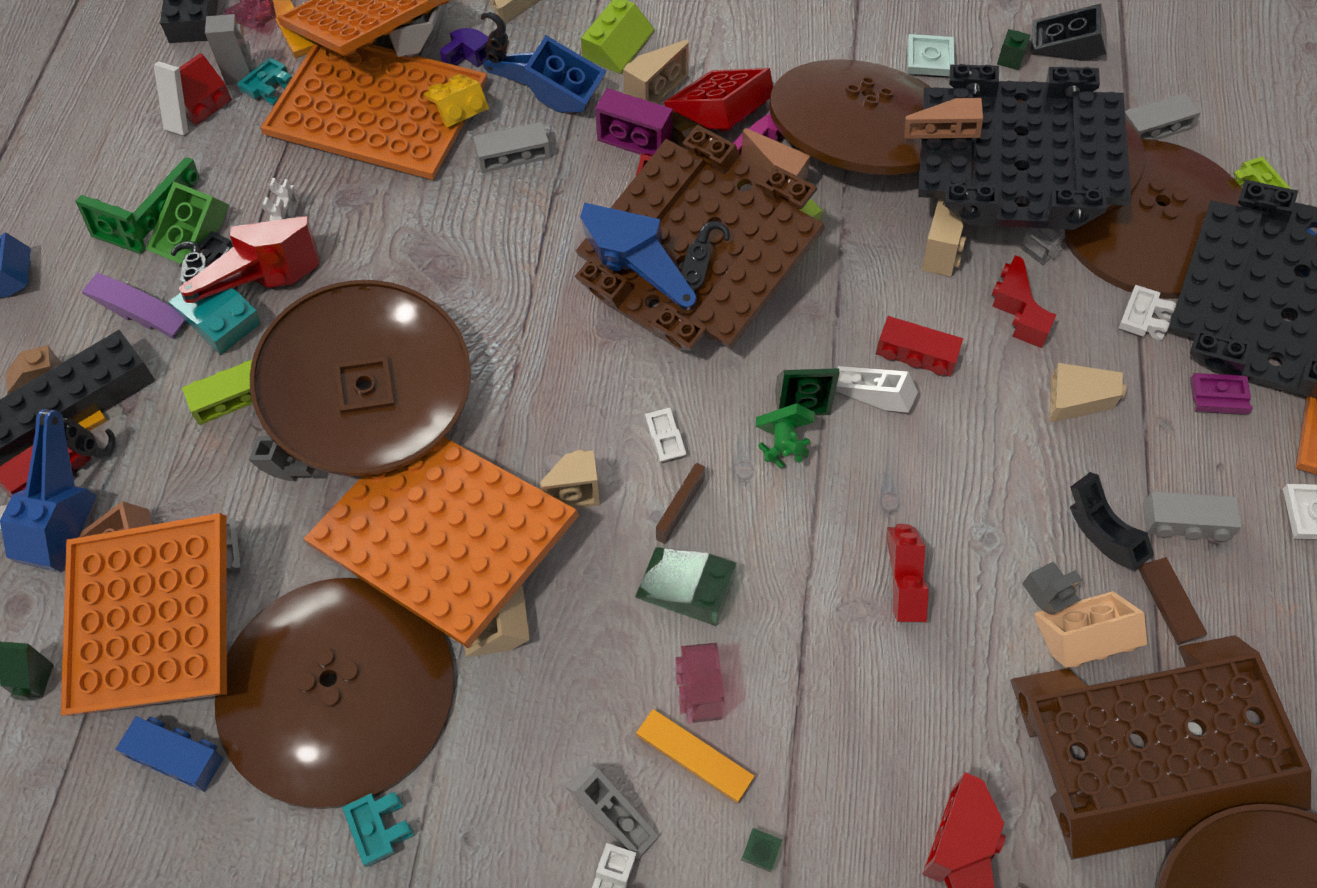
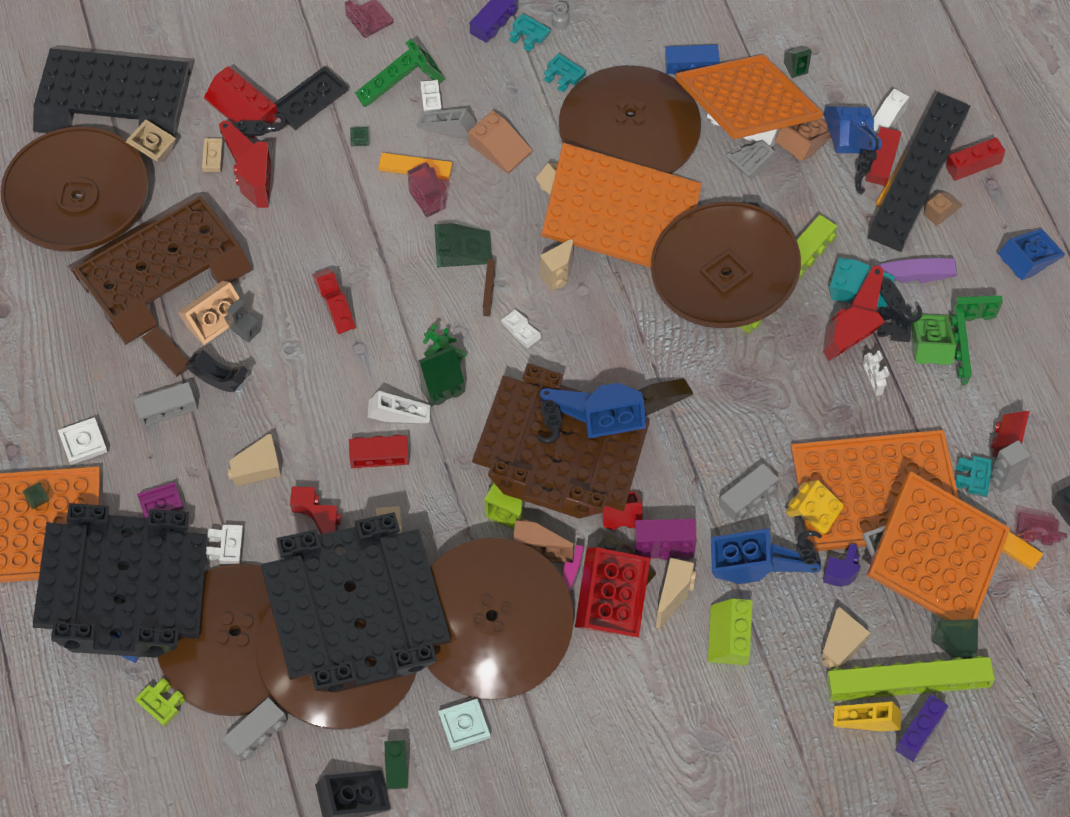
camera: 155 degrees right, 0 degrees up
(171, 98) = (1016, 406): white tile -> none
(542, 281) = (664, 394): none -> dark brown slope
(548, 735) = (498, 142): none -> nougat slope
(947, 120) = (413, 589): nougat slope -> none

